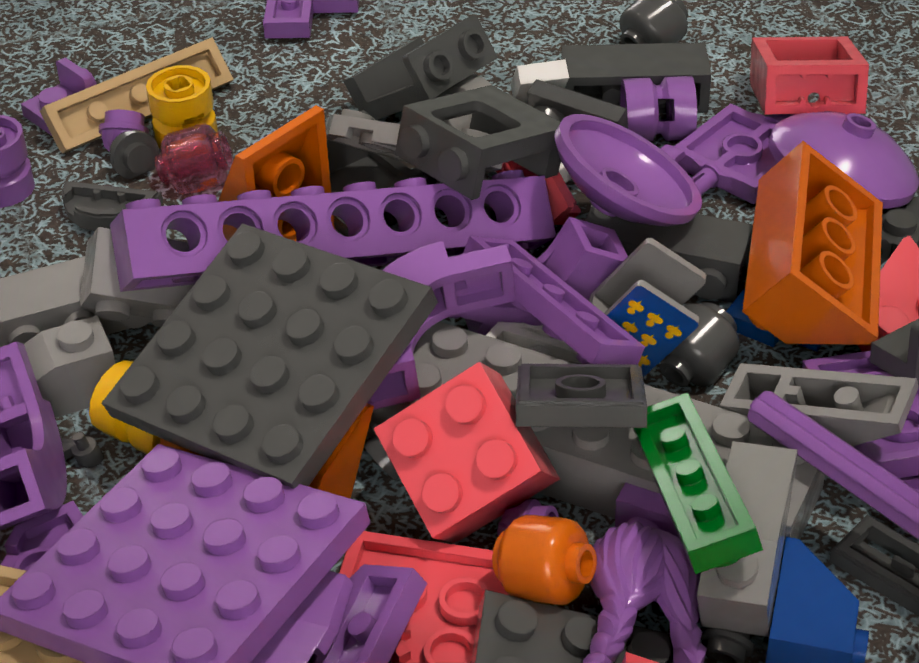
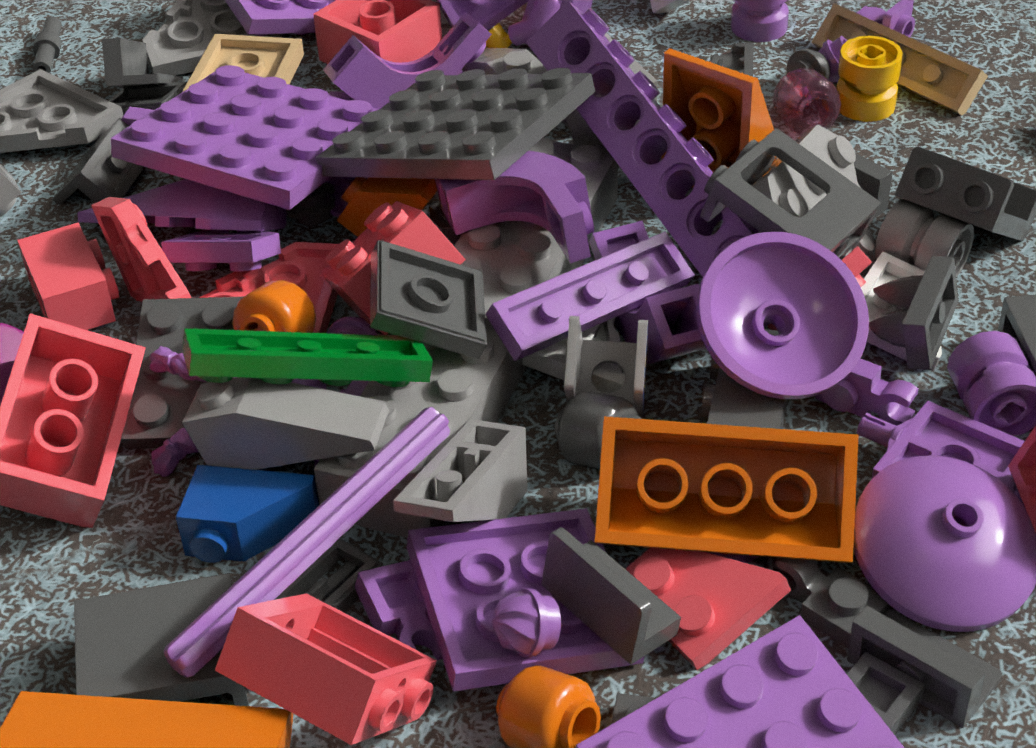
camera: 85 degrees right, 0 degrees up
(525, 75) = (979, 277): white plate -> none

